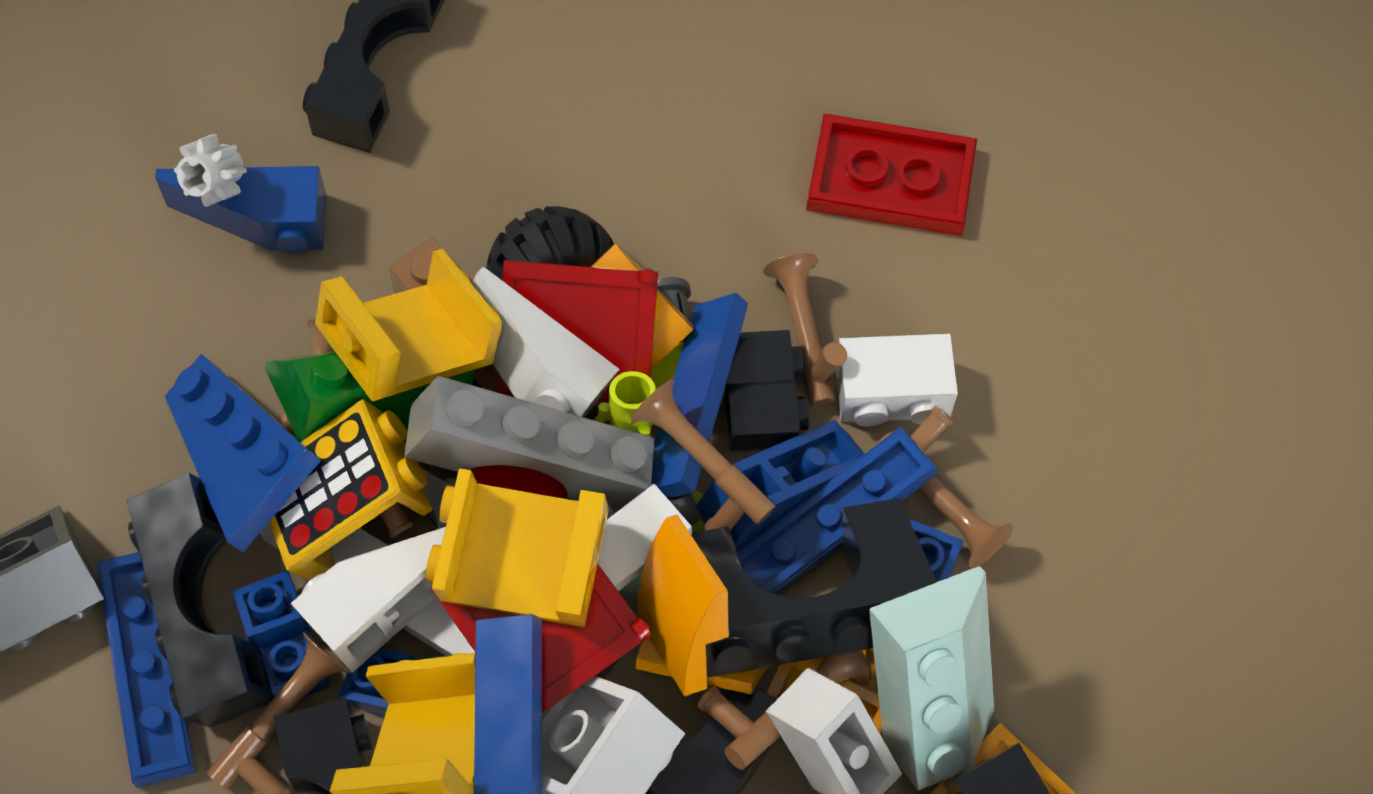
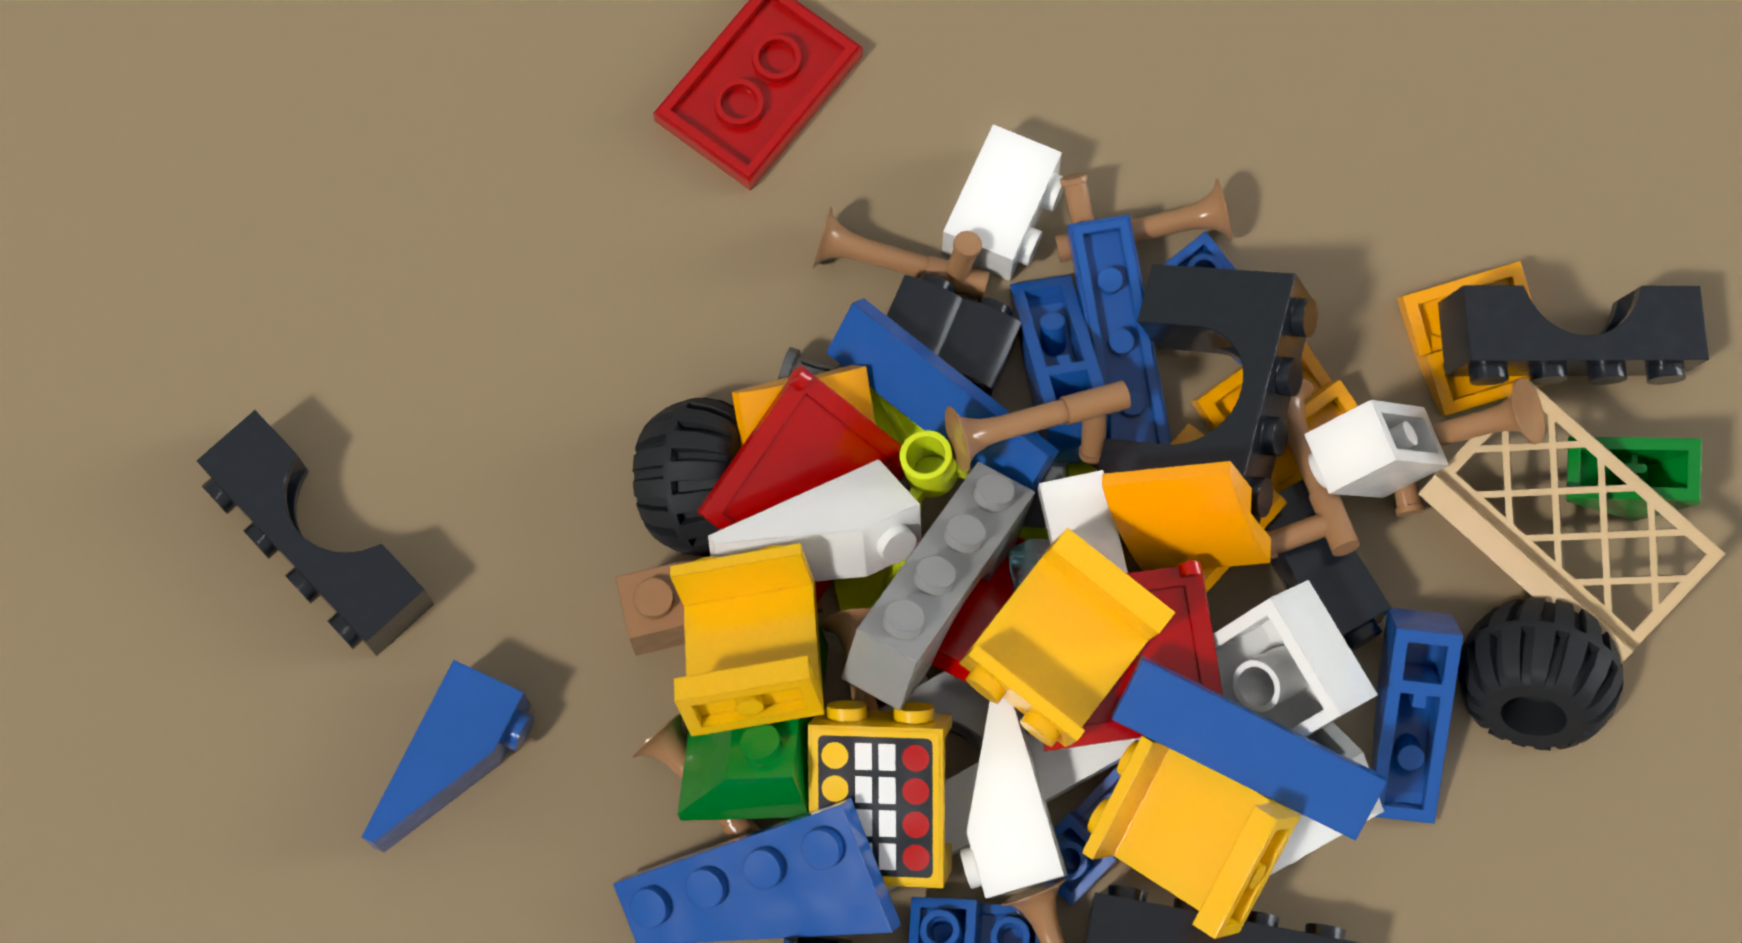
camera: 60 degrees left, 10 degrees up
(210, 170) = (416, 773): white gear -> none
(935, 676) = (1358, 328): light aqua slope -> none

